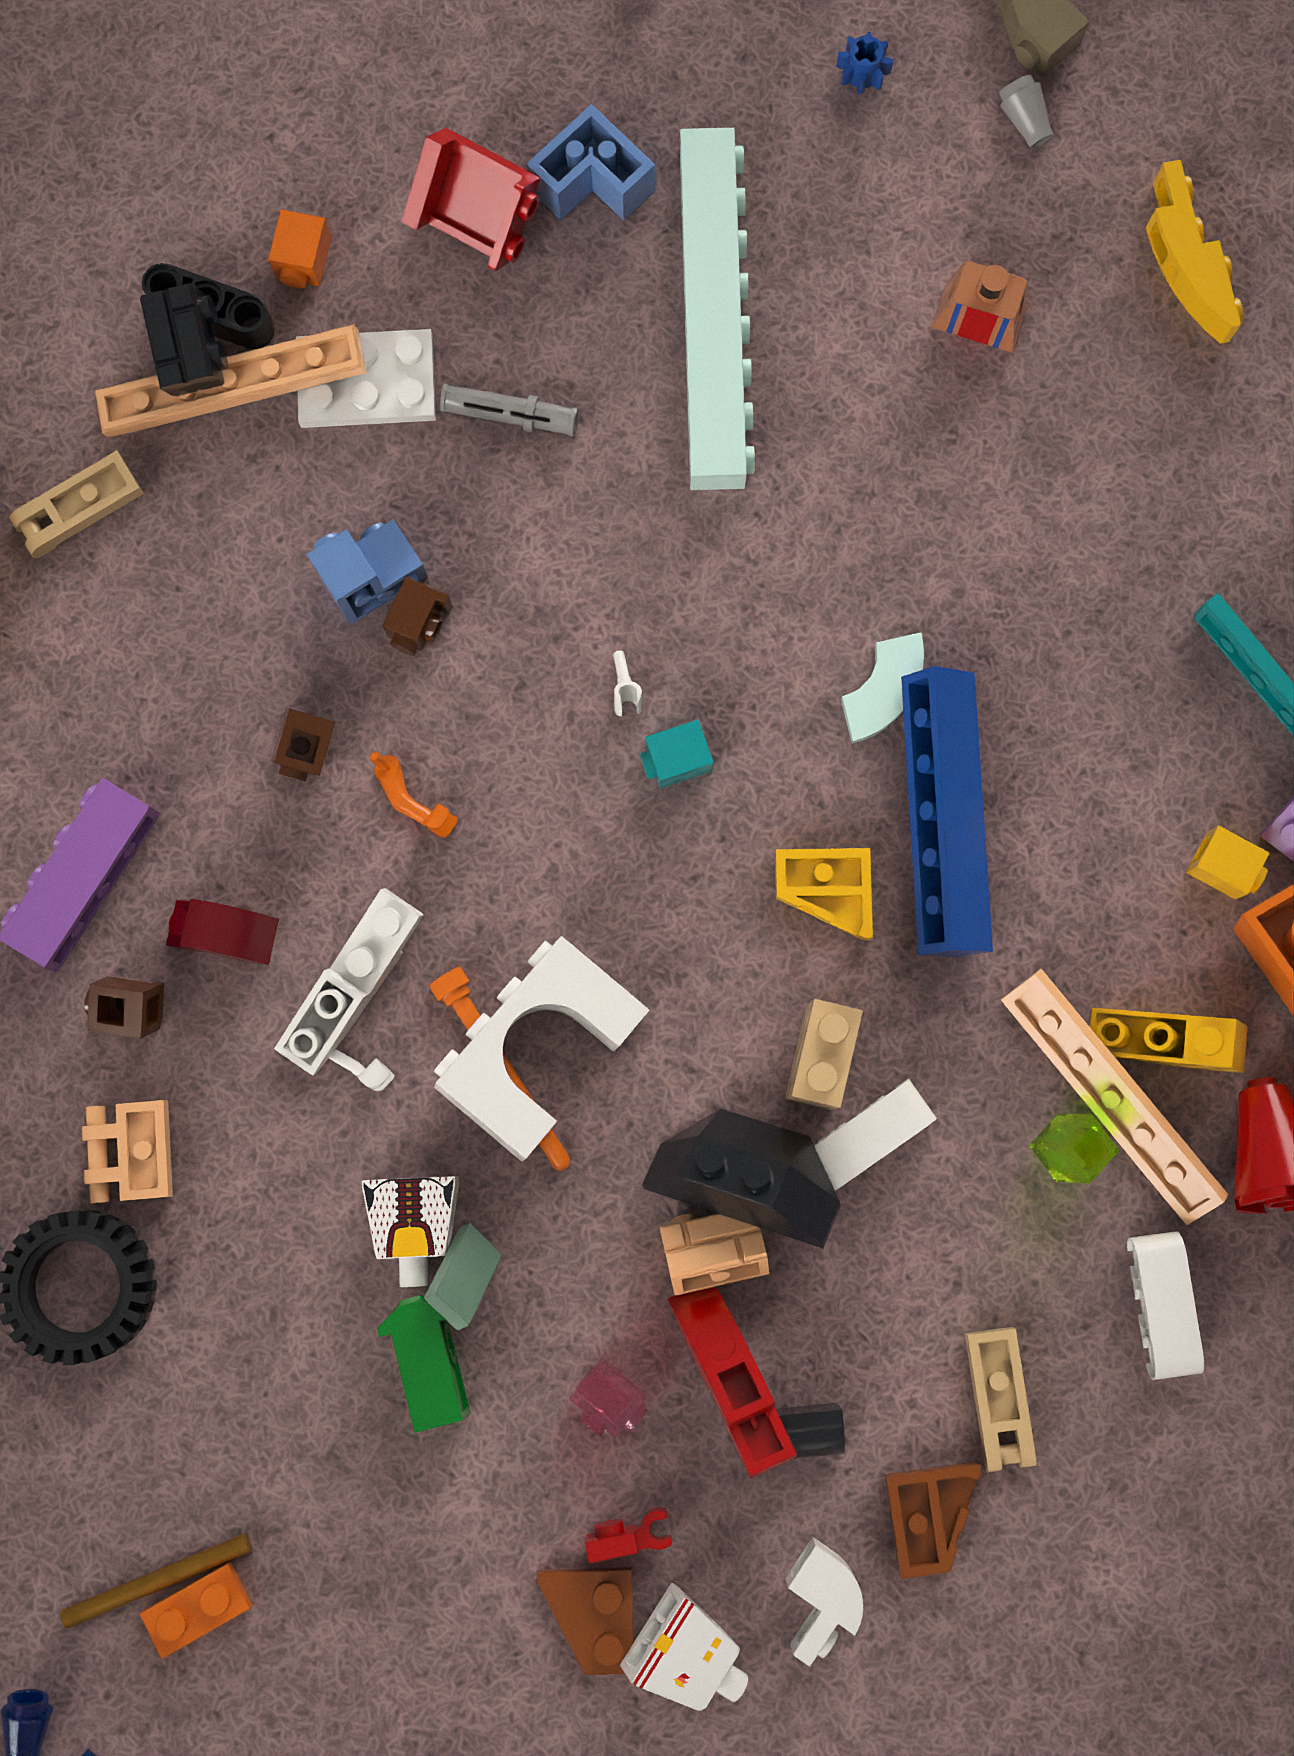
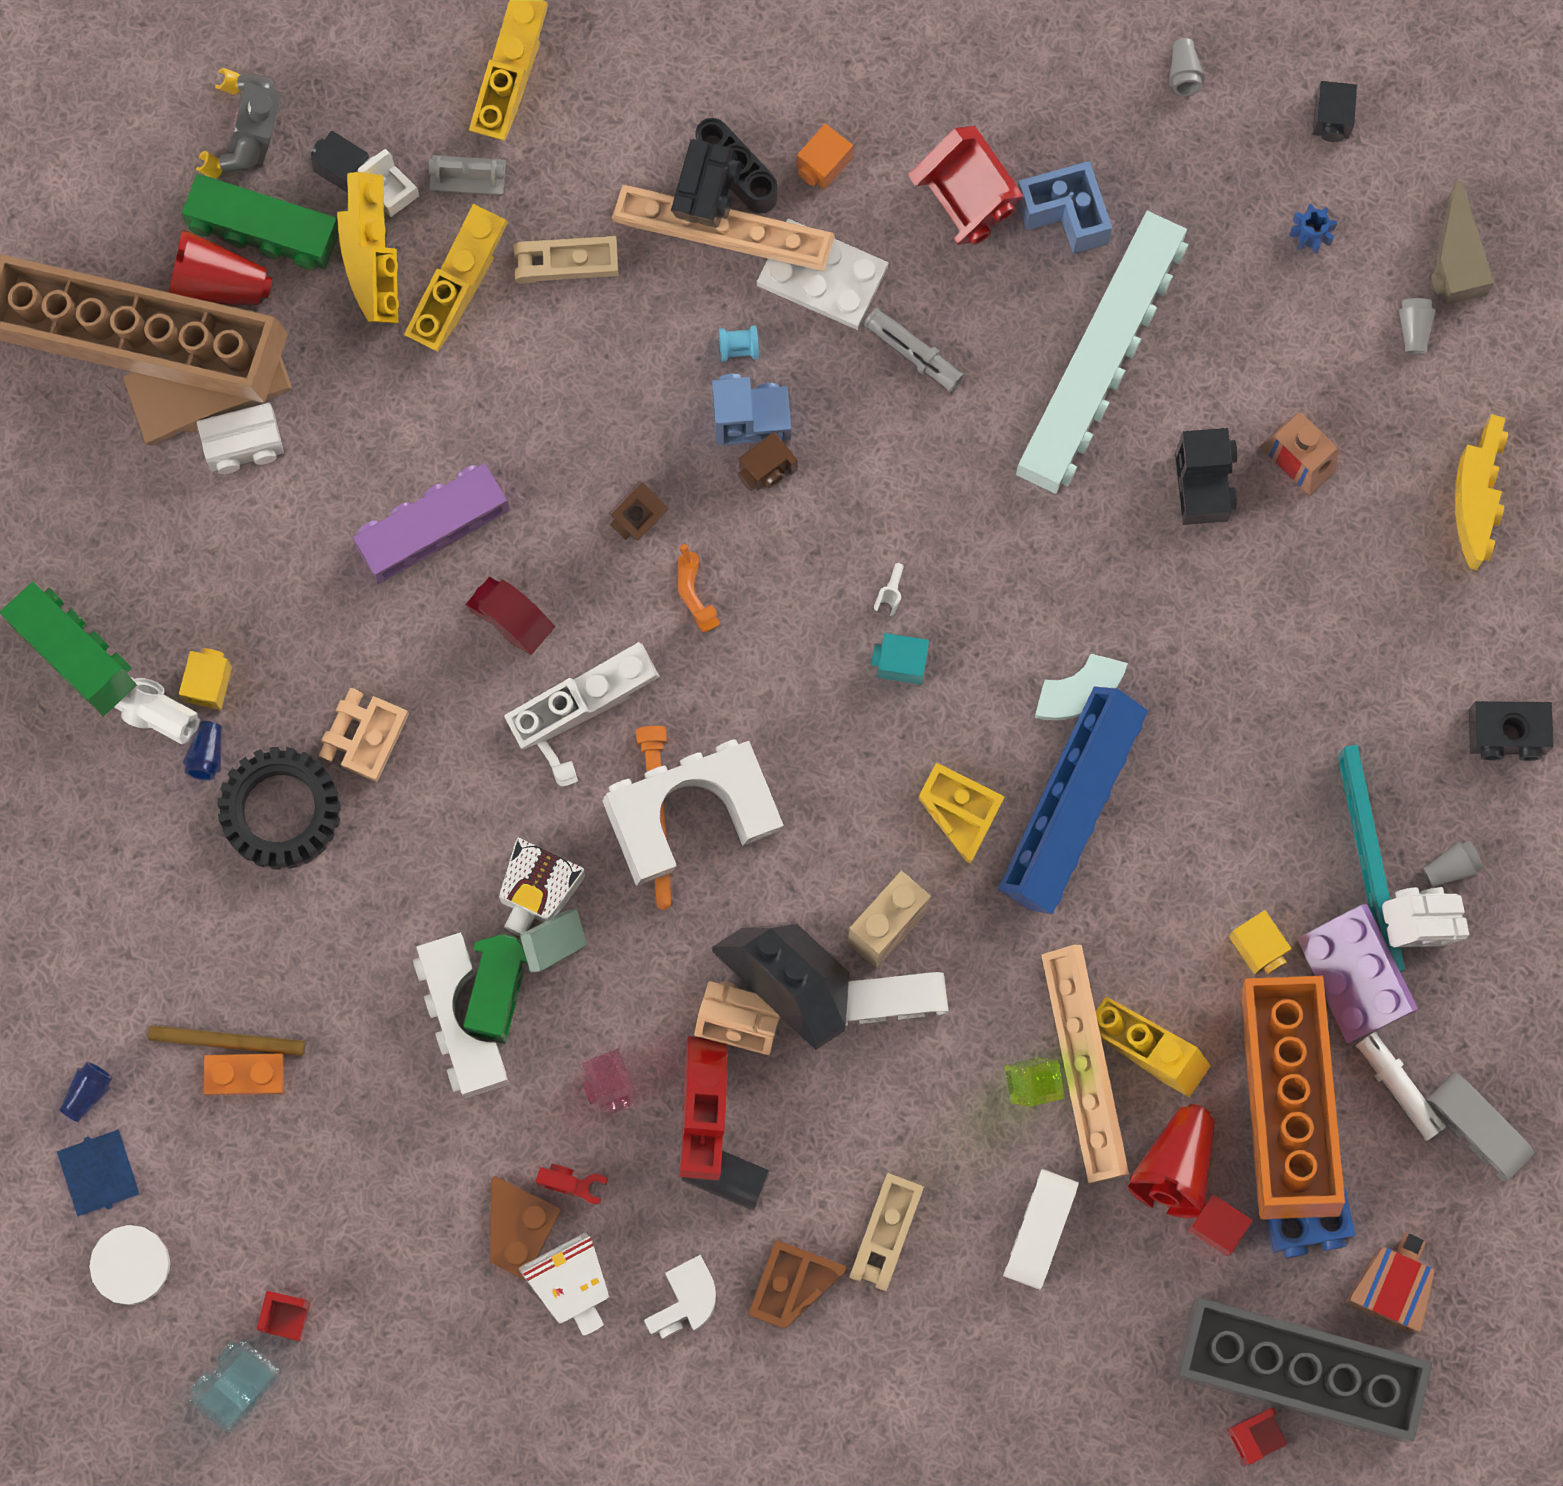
camera: 25 degrees right, 5 degrees down
(139, 1015) = (427, 637): reddish brown brick -> none
(315, 500) = (738, 343): none -> medium azure bush
(447, 1458) = (475, 1062): none -> white arch
(891, 383) = (1202, 475): none -> black brick

